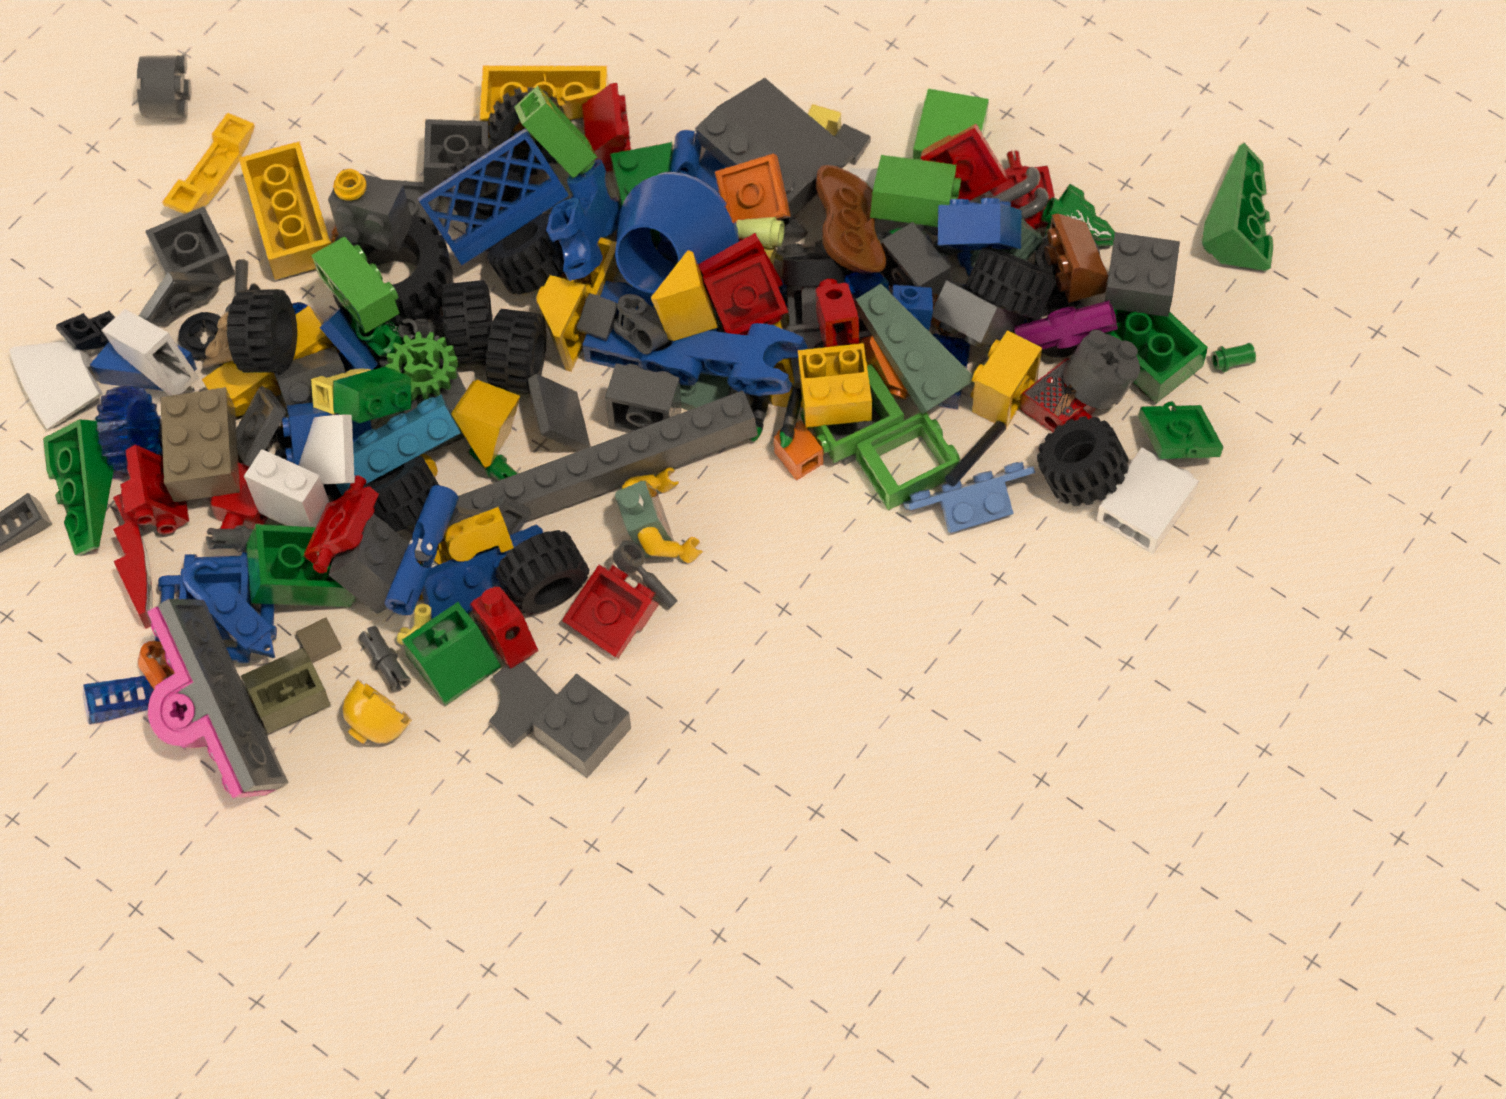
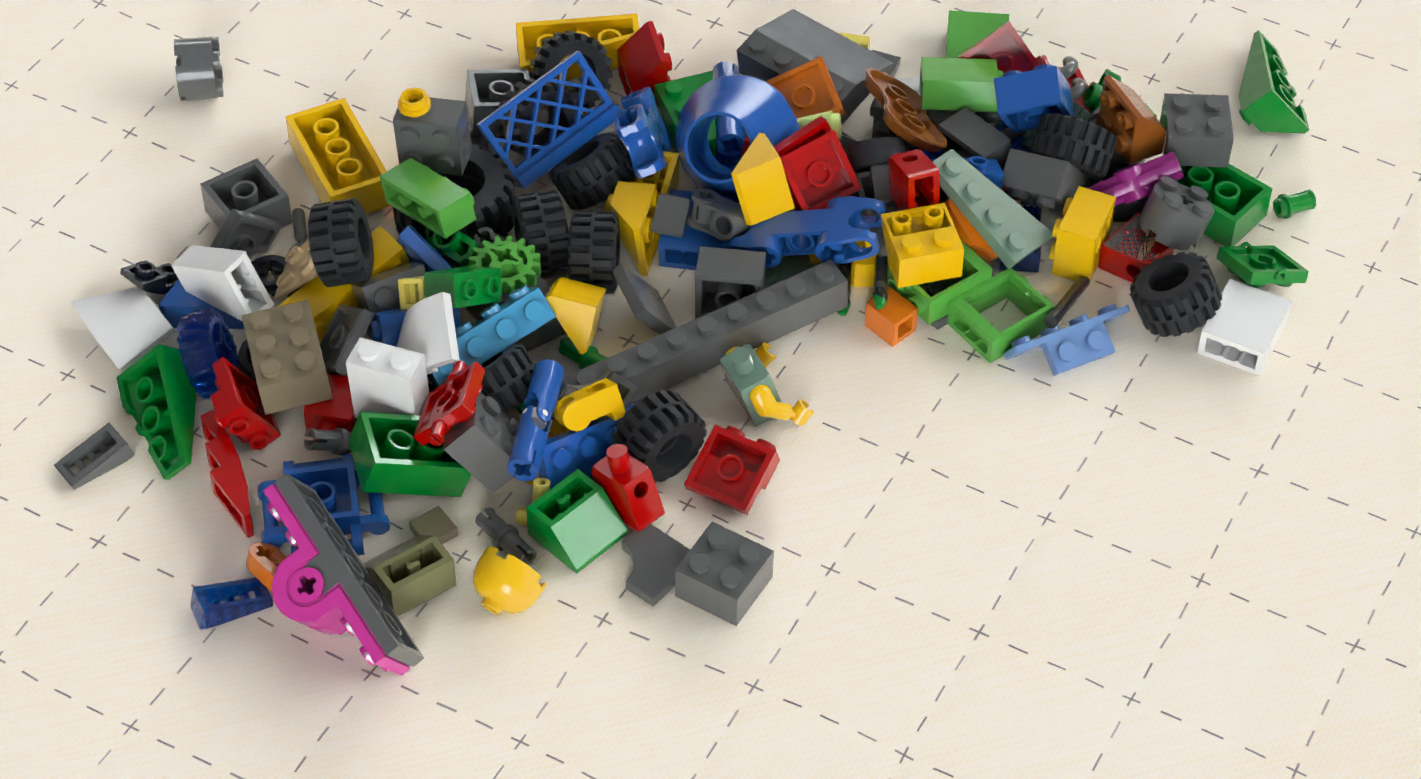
camera: 10 degrees left, 15 degrees down
(214, 167) = (260, 131): yellow slope -> none
(231, 611) = (347, 501): blue plate -> none
(556, 132) = (606, 57): bright green window -> none
(649, 579) = (746, 420): dark grey piece -> none

